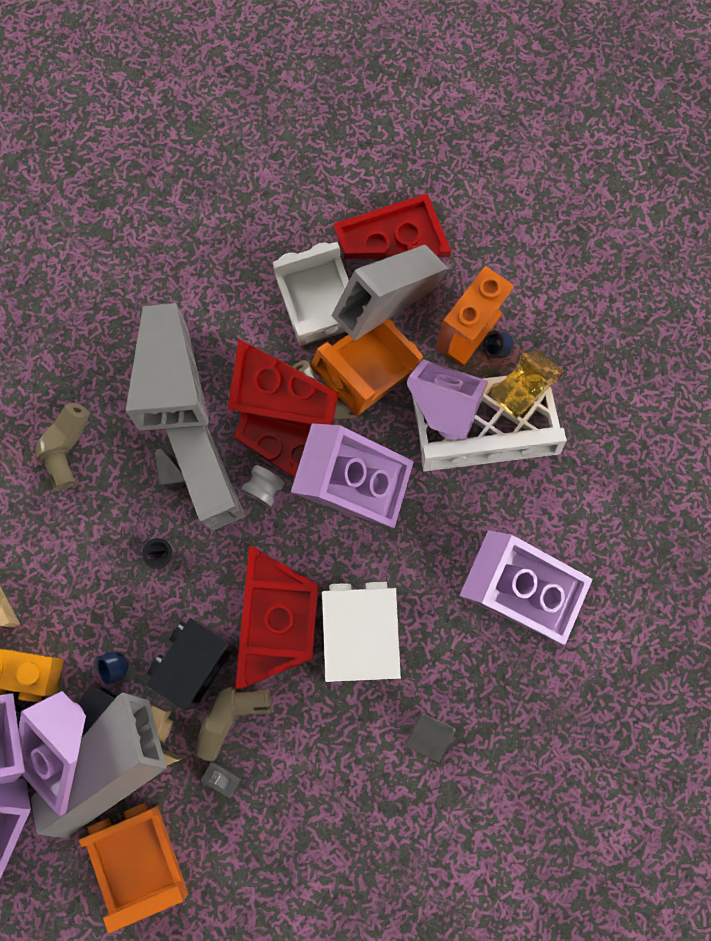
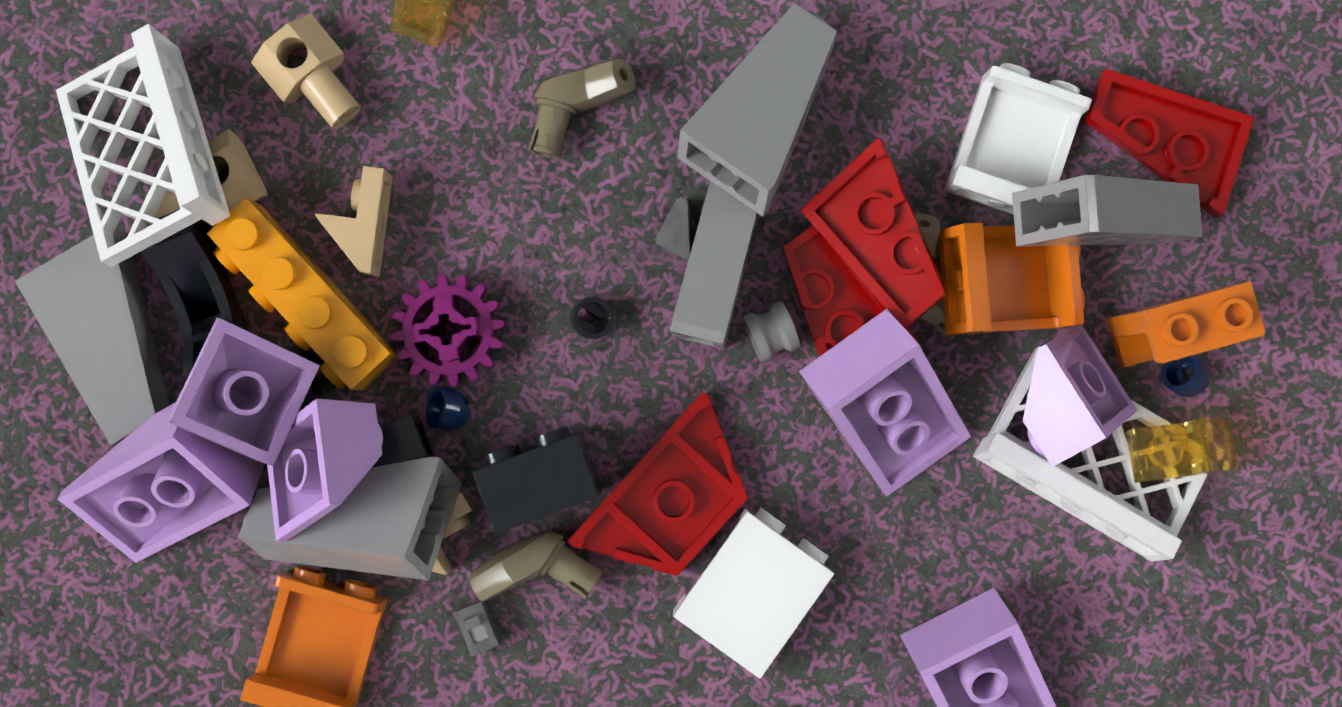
camera: 40 degrees right, 10 degrees up
(67, 633) = (446, 306): none -> magenta gear

